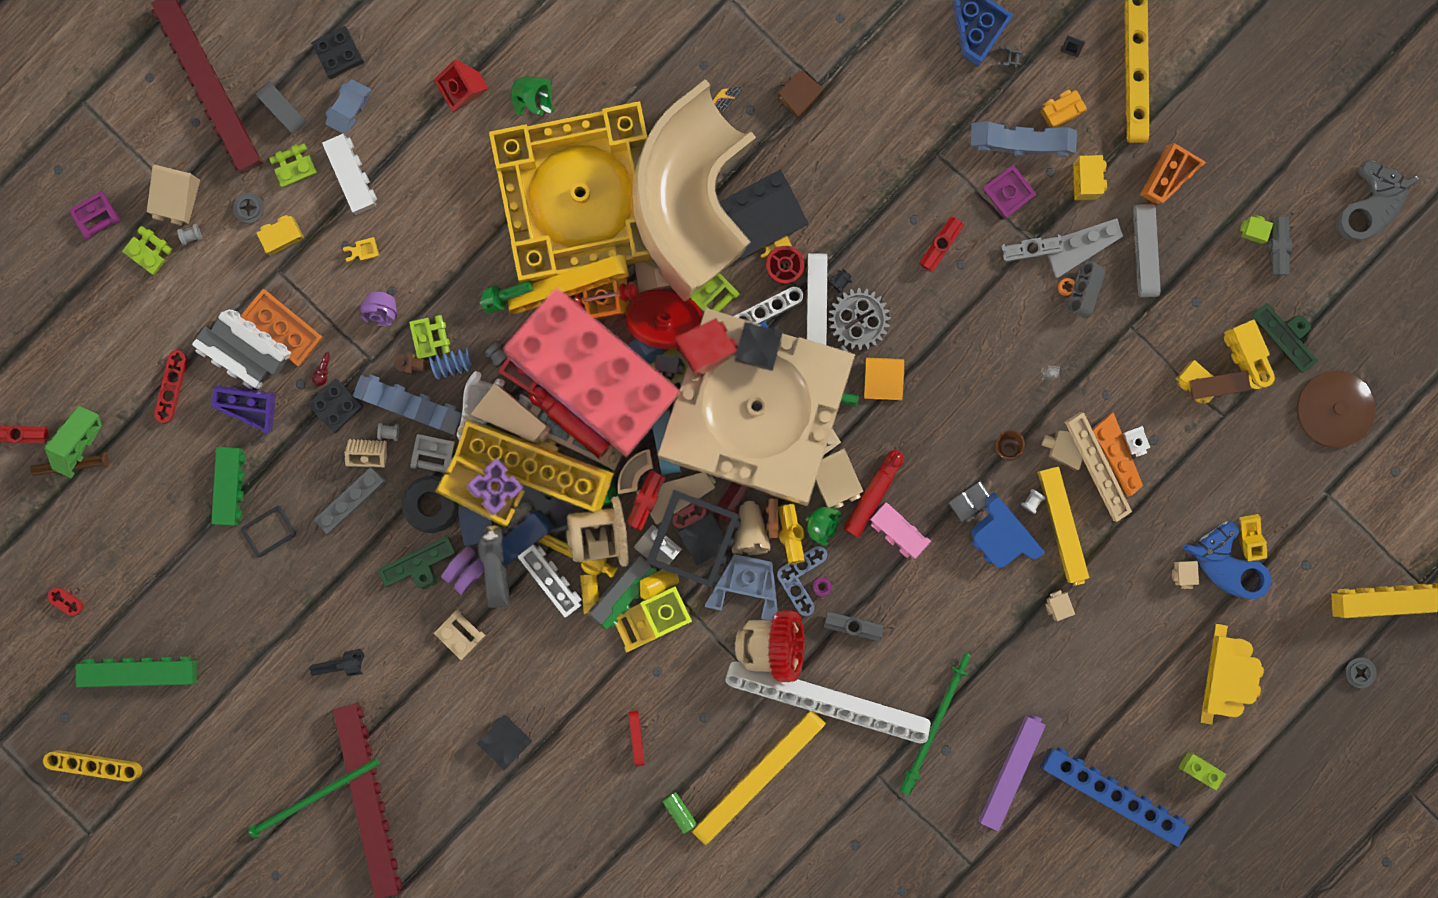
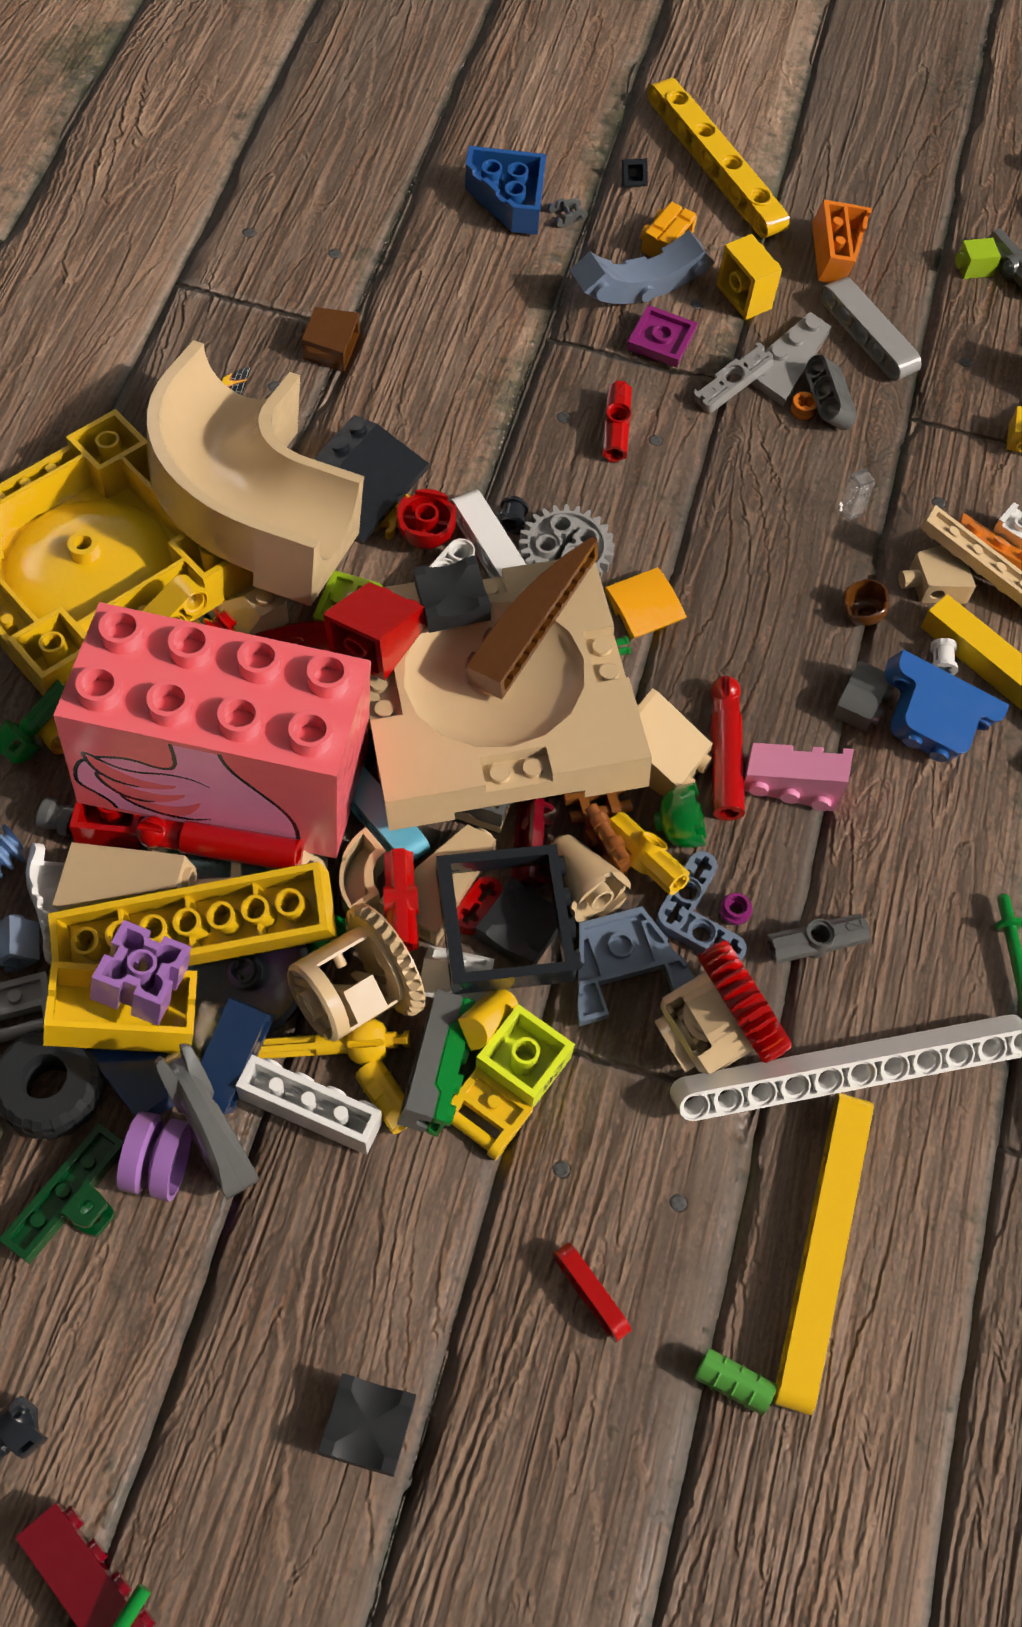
camera: 30 degrees left, 25 degrees down
(455, 639) = (191, 1291): tan plate -> none
(785, 387) = (526, 622): none -> reddish brown slope

